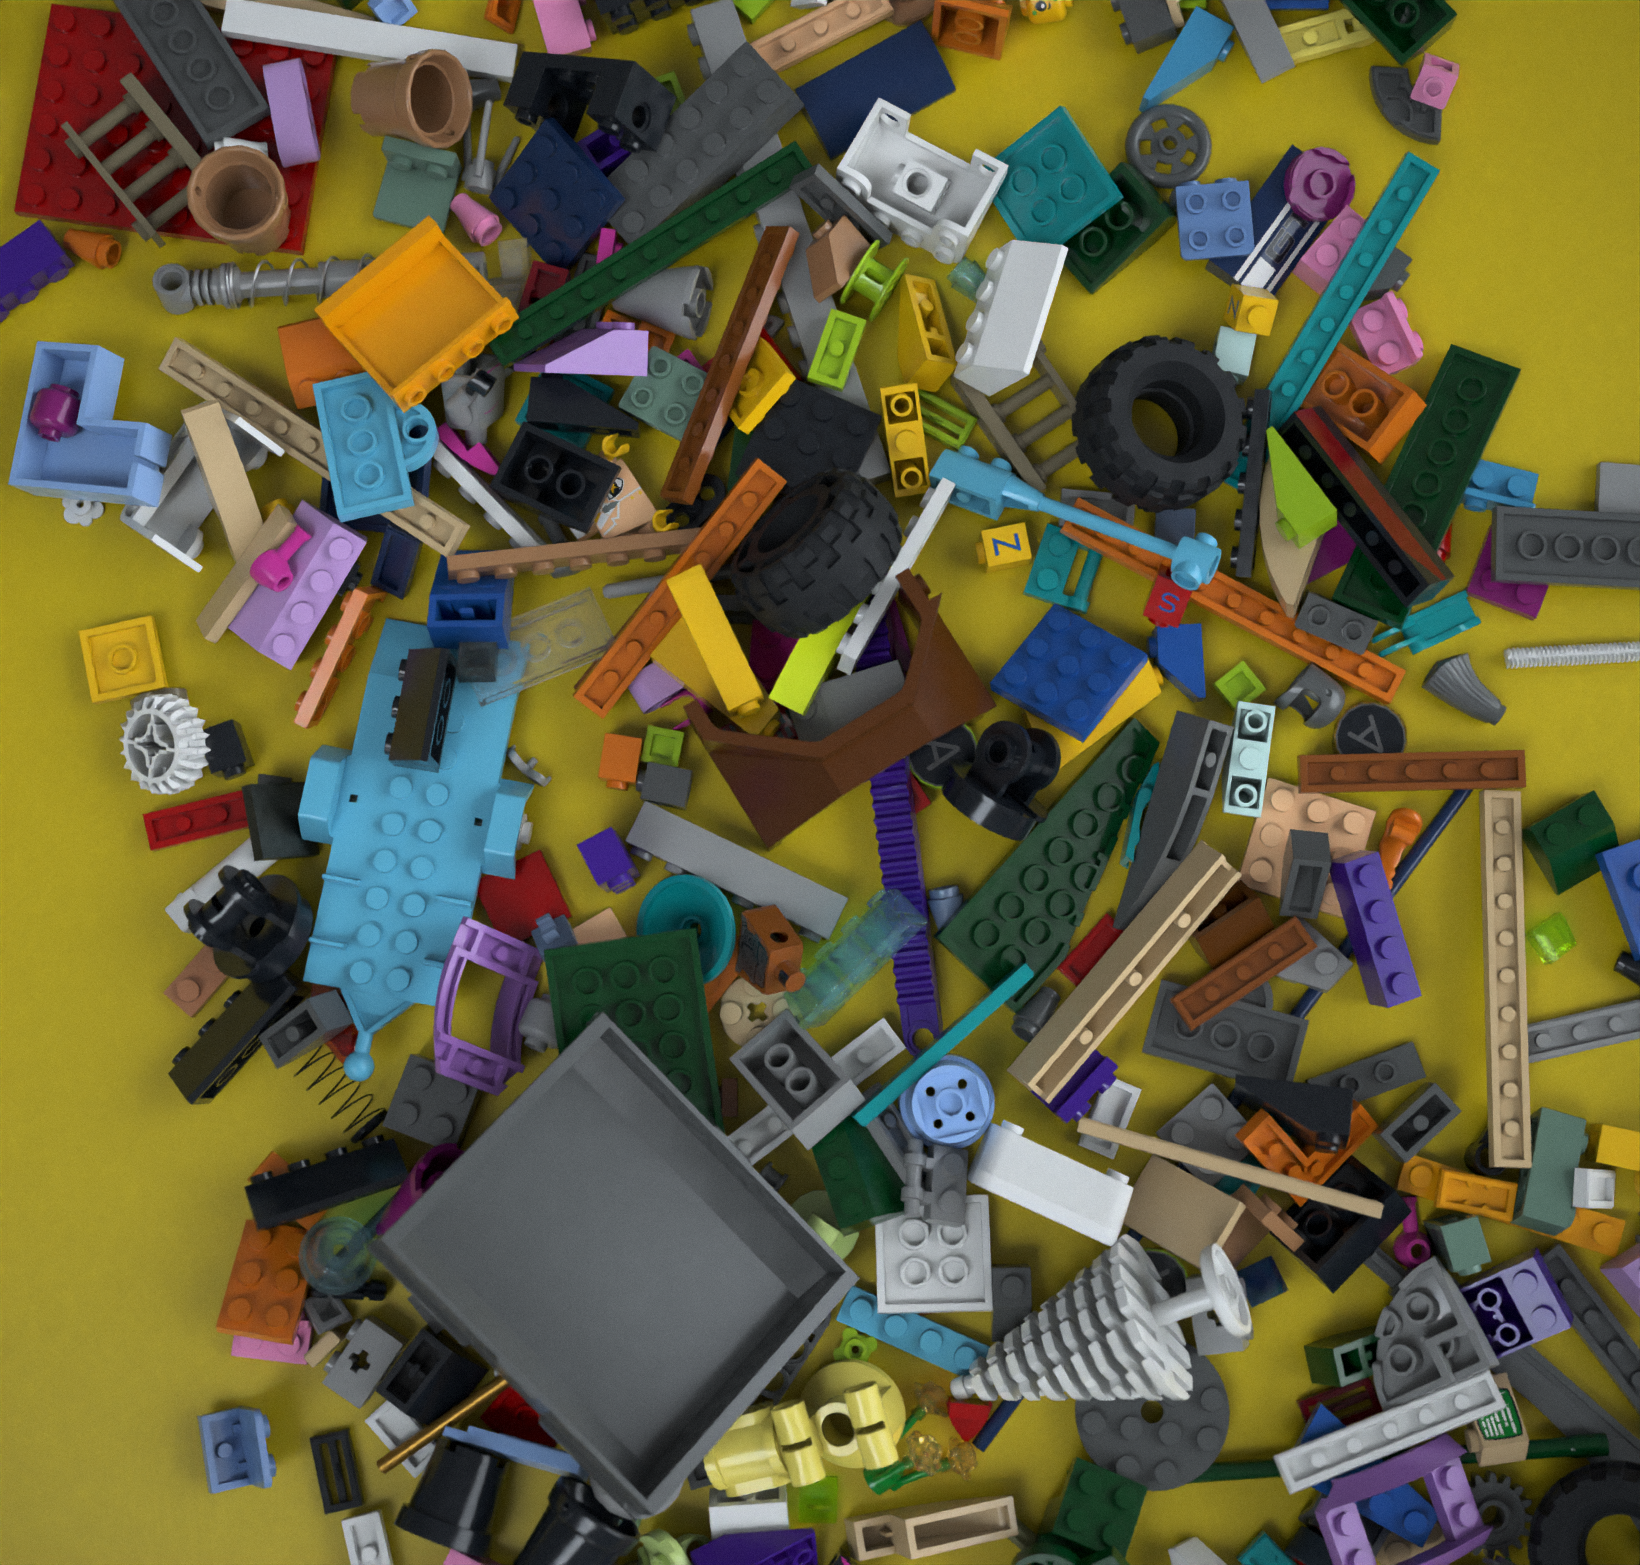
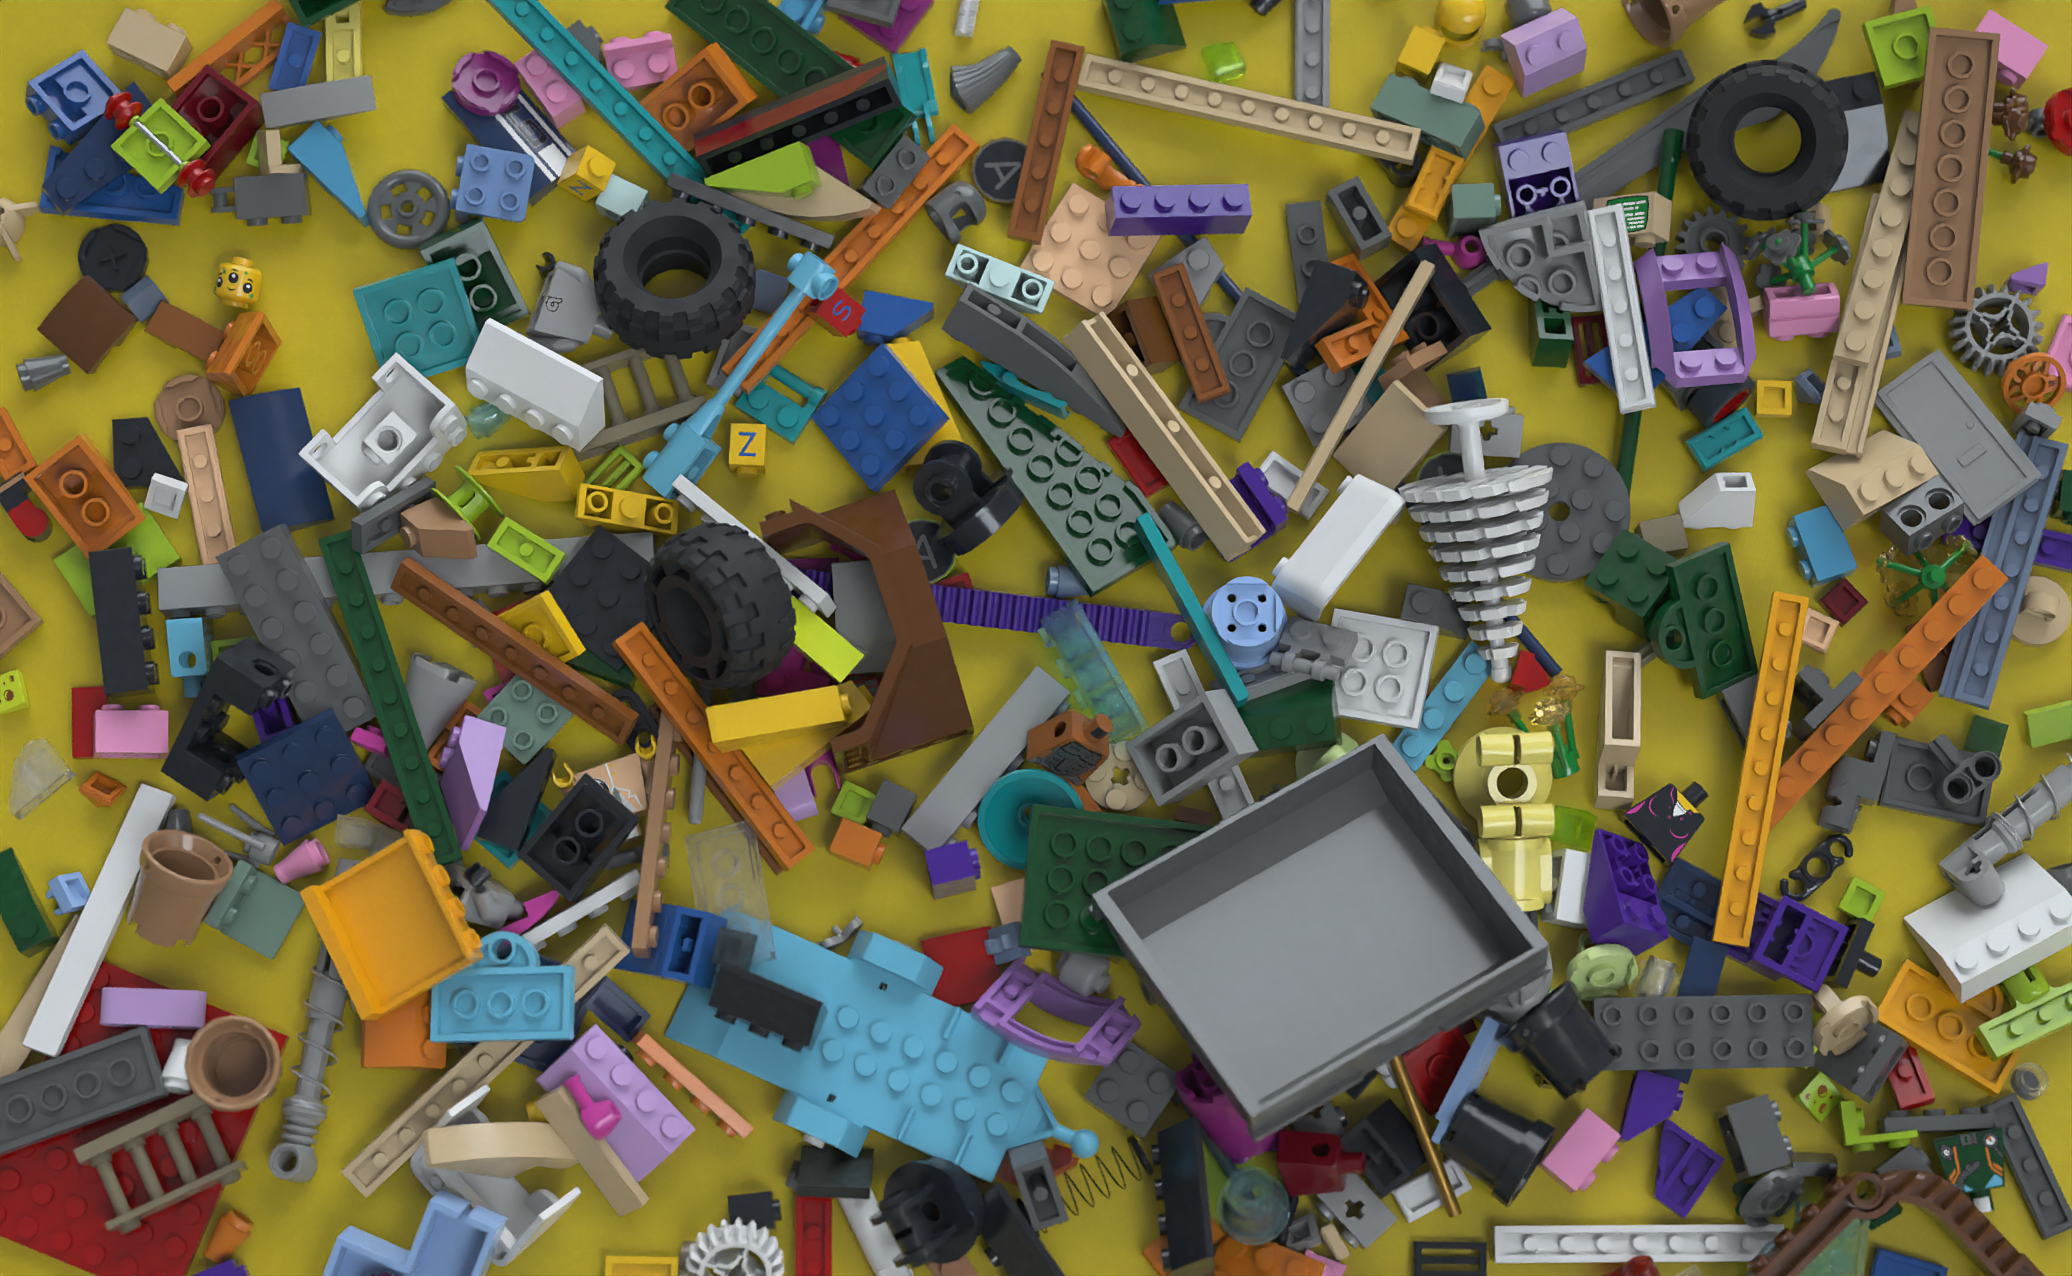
camera: 80 degrees left, 5 degrees down
(391, 1316) = (1315, 1162): none -> dark red torso
(662, 48) = (184, 639): none -> medium azure torso
(1098, 324) = (565, 309): none -> light grey torso
(1153, 1530) = (1664, 533): none -> dark tan brick
(1239, 685) = (929, 273): lime plate -> none
(1304, 873) = (1114, 256): dark grey slope -> none

